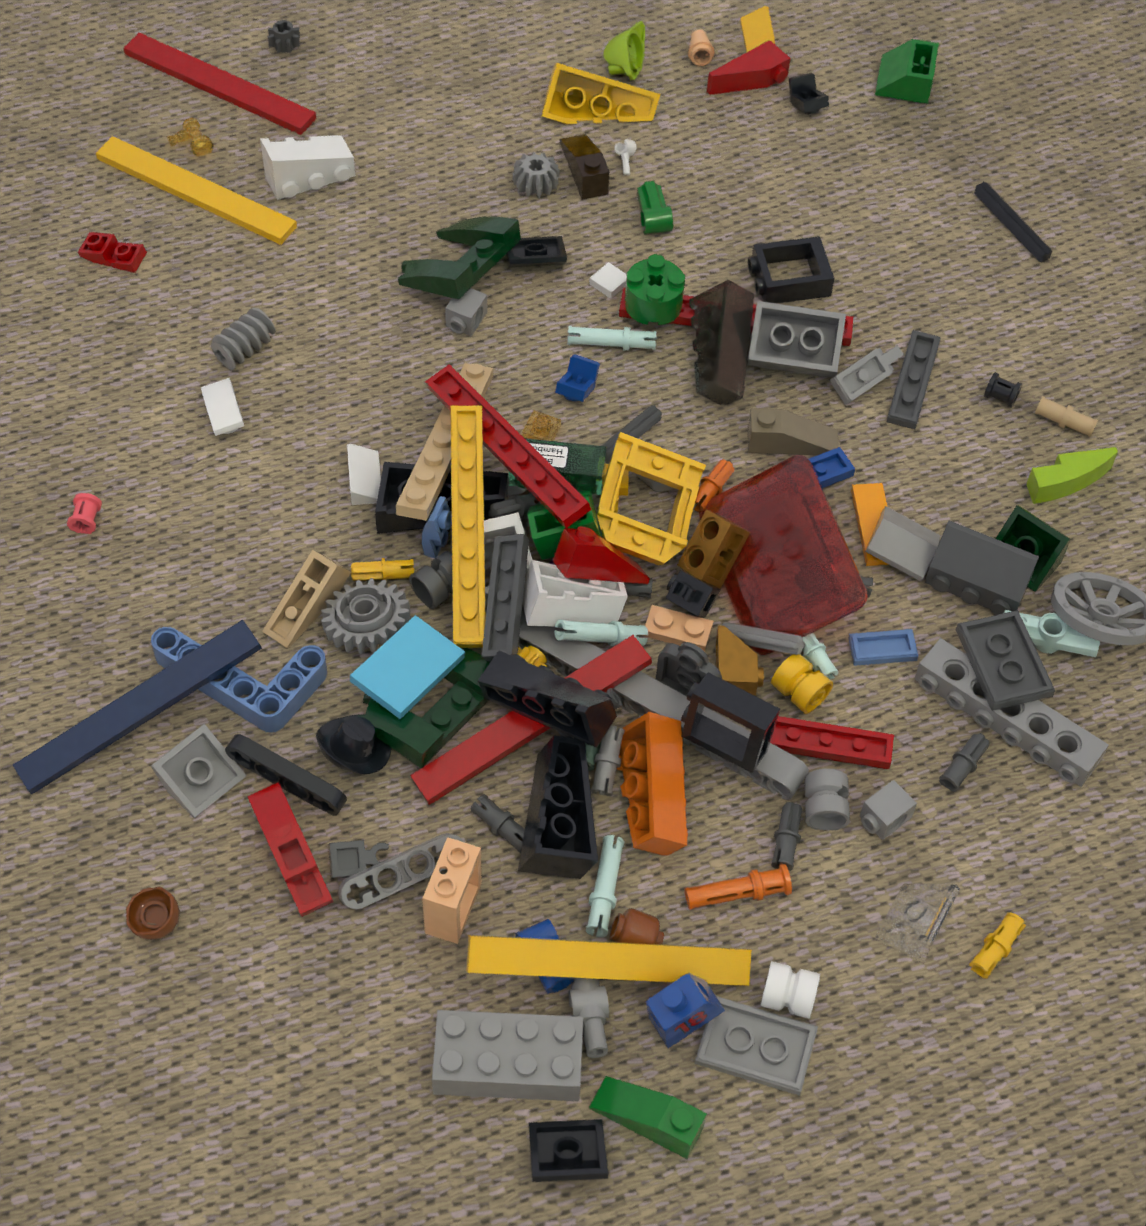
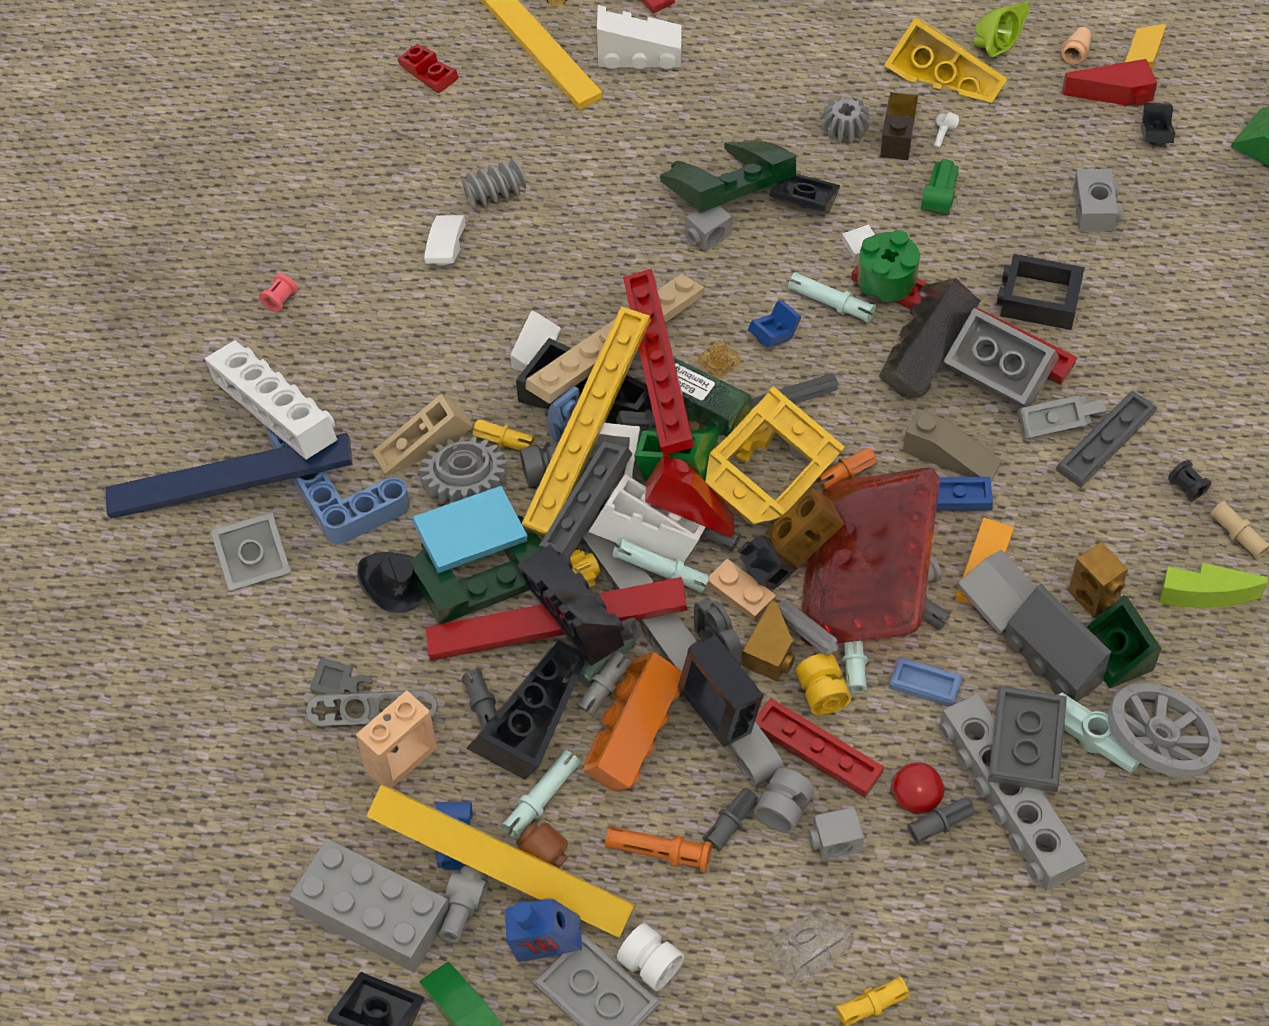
camera: 30 degrees right, 0 degrees up
(144, 615) = (272, 399): none -> white brick
(155, 907) = (152, 652): dark orange hair -> none
(289, 775) = (319, 584): black beam -> none
(290, 849) = (285, 649): red slope -> none
(792, 176) = (1096, 200): none -> light grey brick
(929, 741) = (917, 788): none -> red hair
(984, 501) = (1097, 579): none -> pearl gold brick

